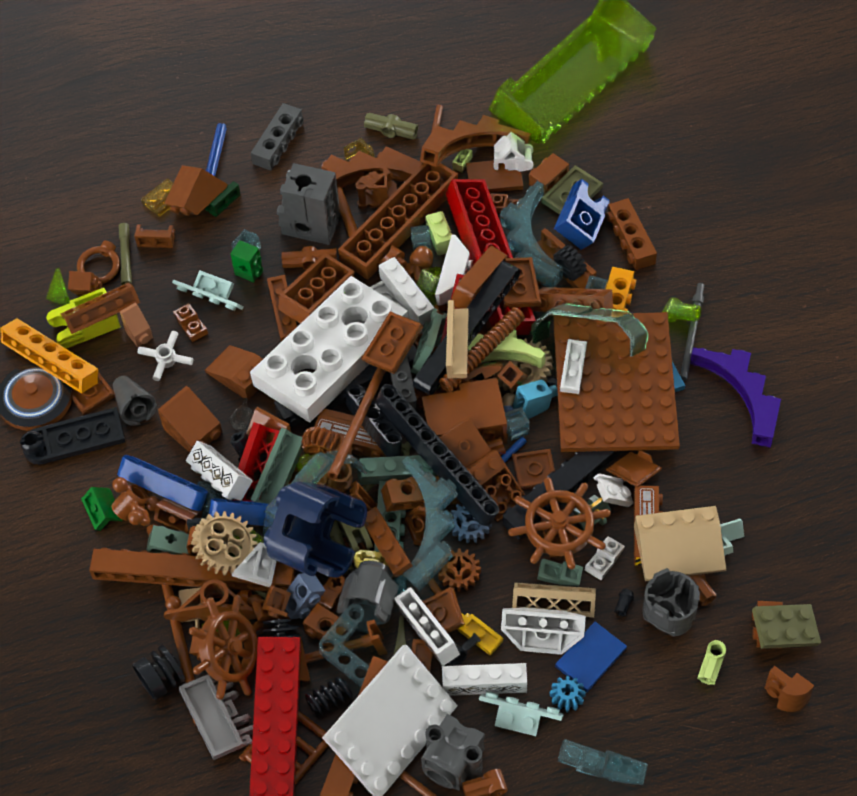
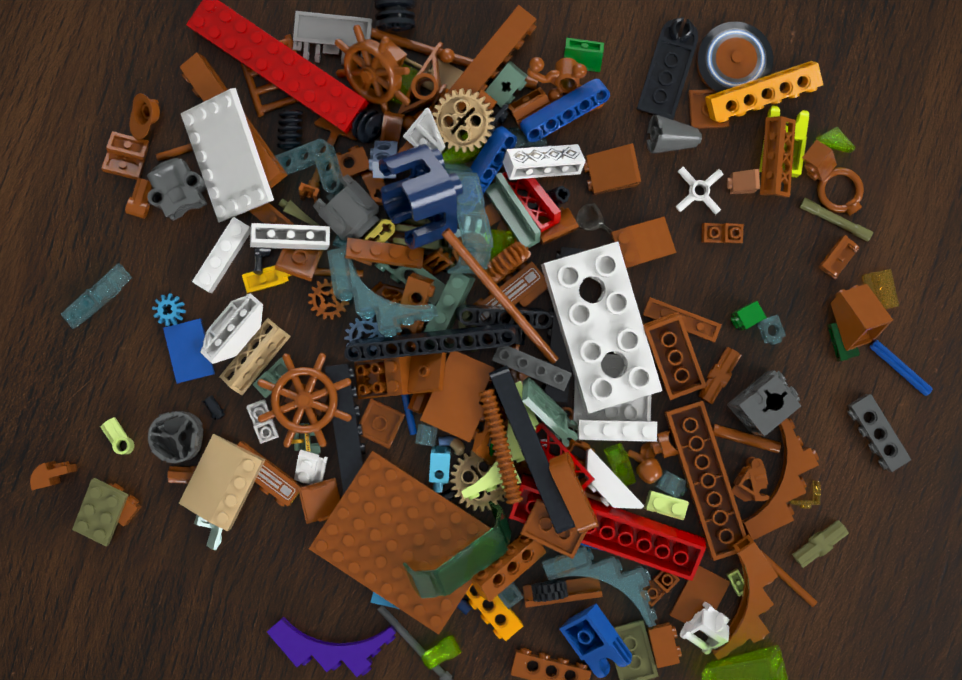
camera: 120 degrees right, 30 degrees up
(212, 287) = (743, 270): light aqua bracket -> none
(276, 602) = (387, 131): dark orange bracket -> none
(392, 342) = (559, 375): dark orange tile -> none
(457, 341) = (515, 426): tan fence -> none
(512, 375) = (465, 459): dark orange brick -> none
(519, 716) = (179, 263): light aqua bracket -> none
(573, 366) = (437, 514): white tile -> none

